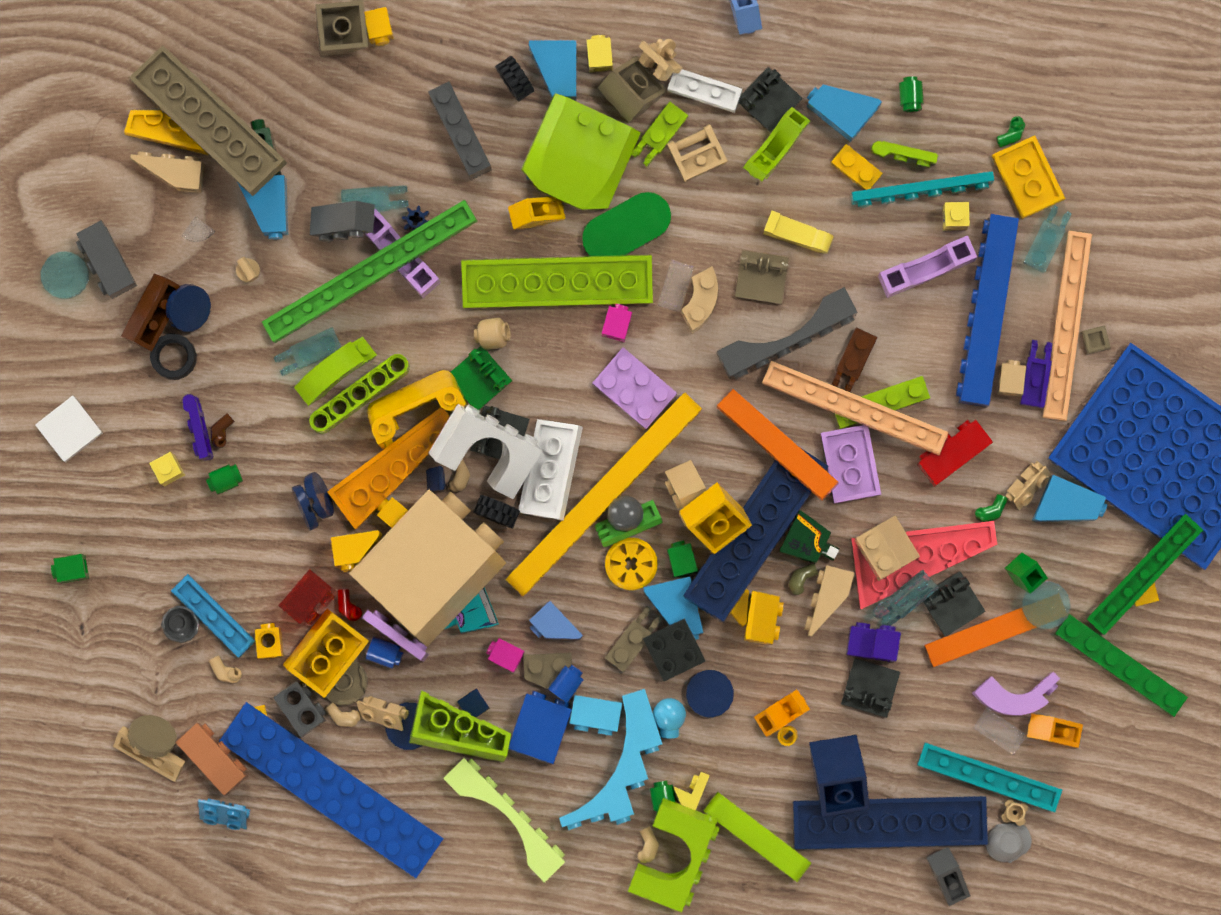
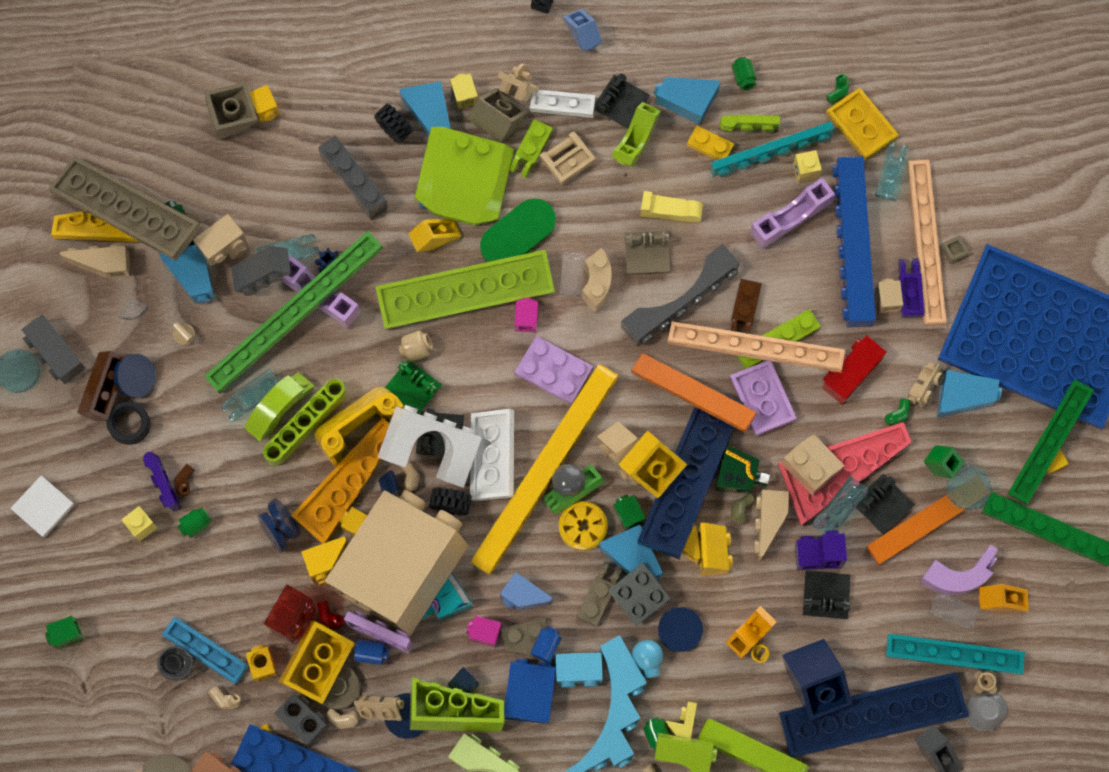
camera: 15 degrees left, 10 degrees down
(305, 177) = (222, 239): none -> tan brick

